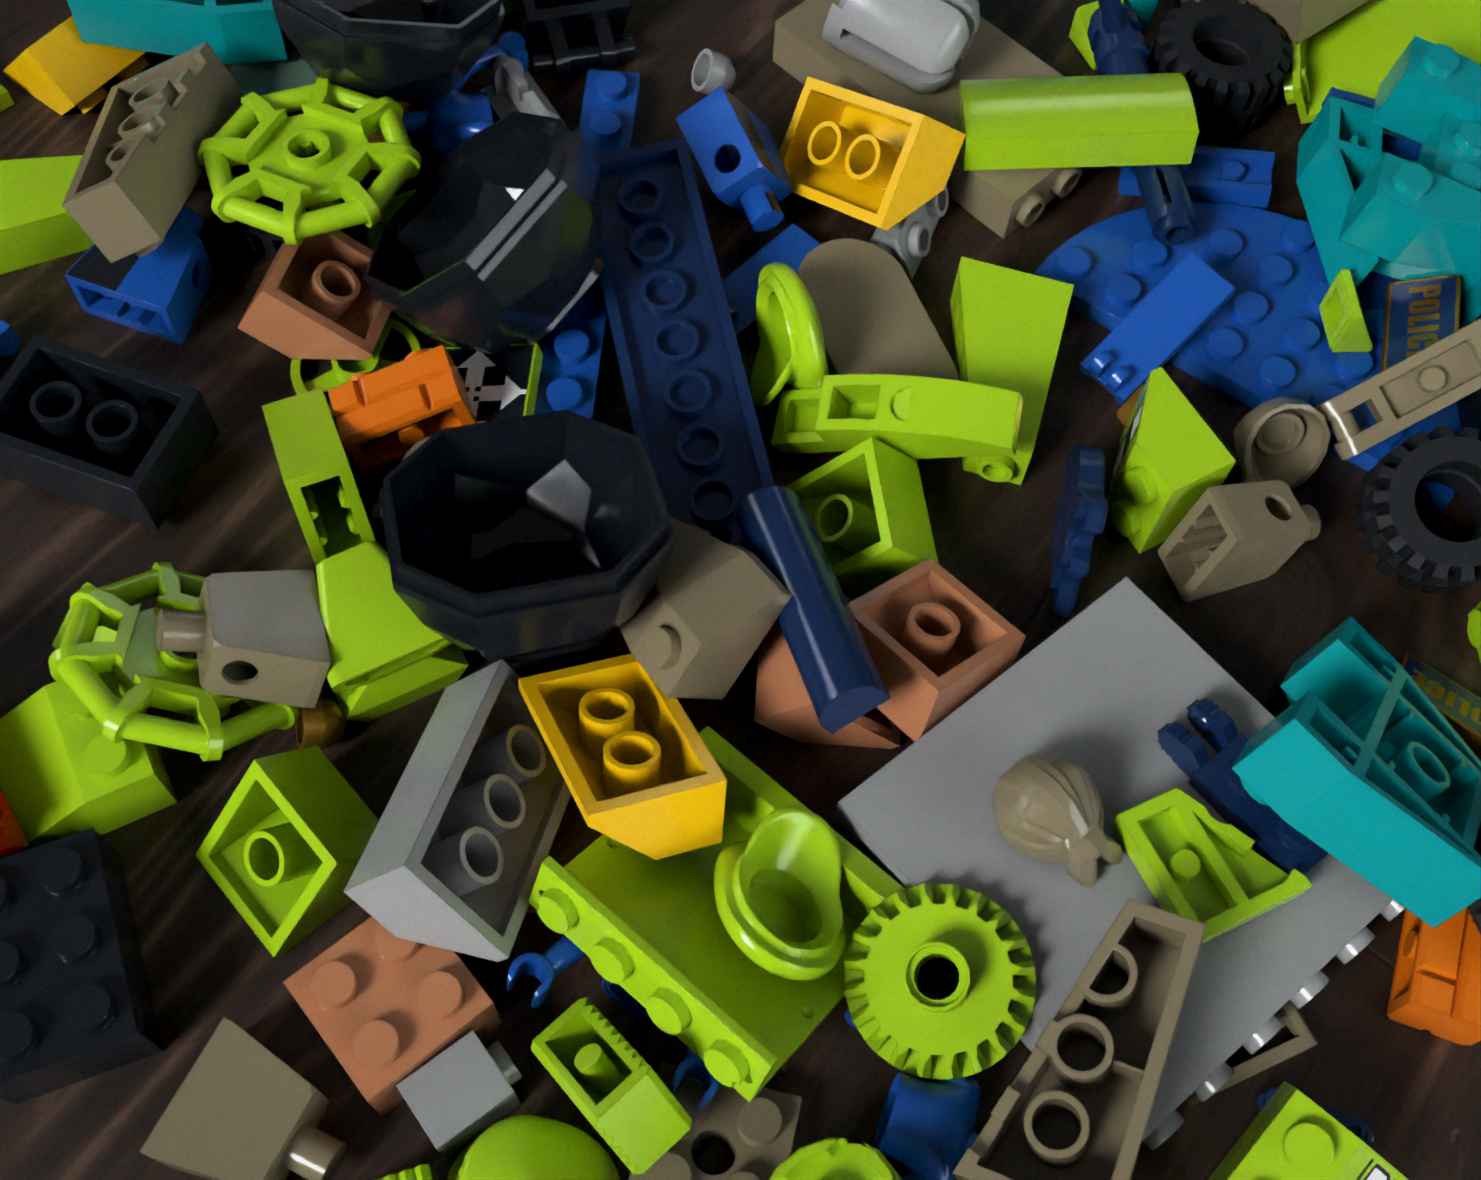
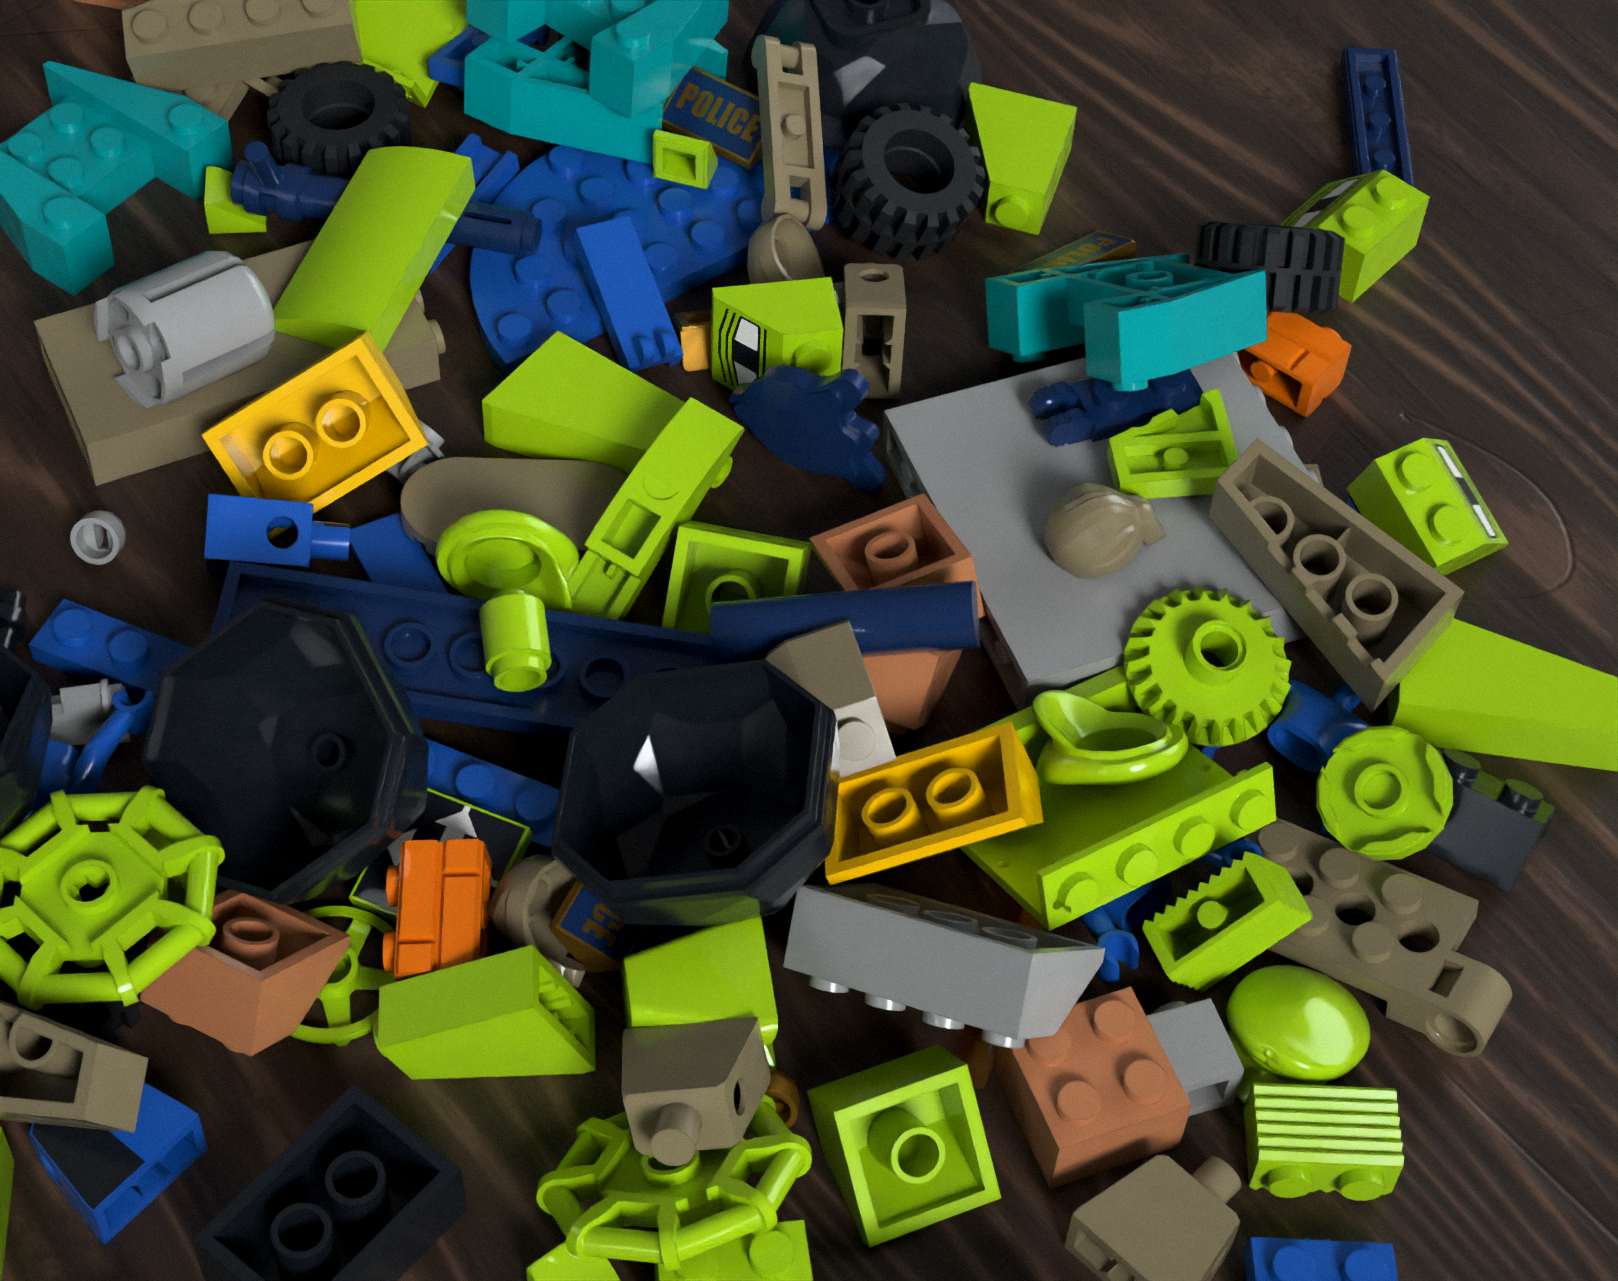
camera: 70 degrees left, 10 degrees down
(685, 353) = (515, 640): none -> lime brick

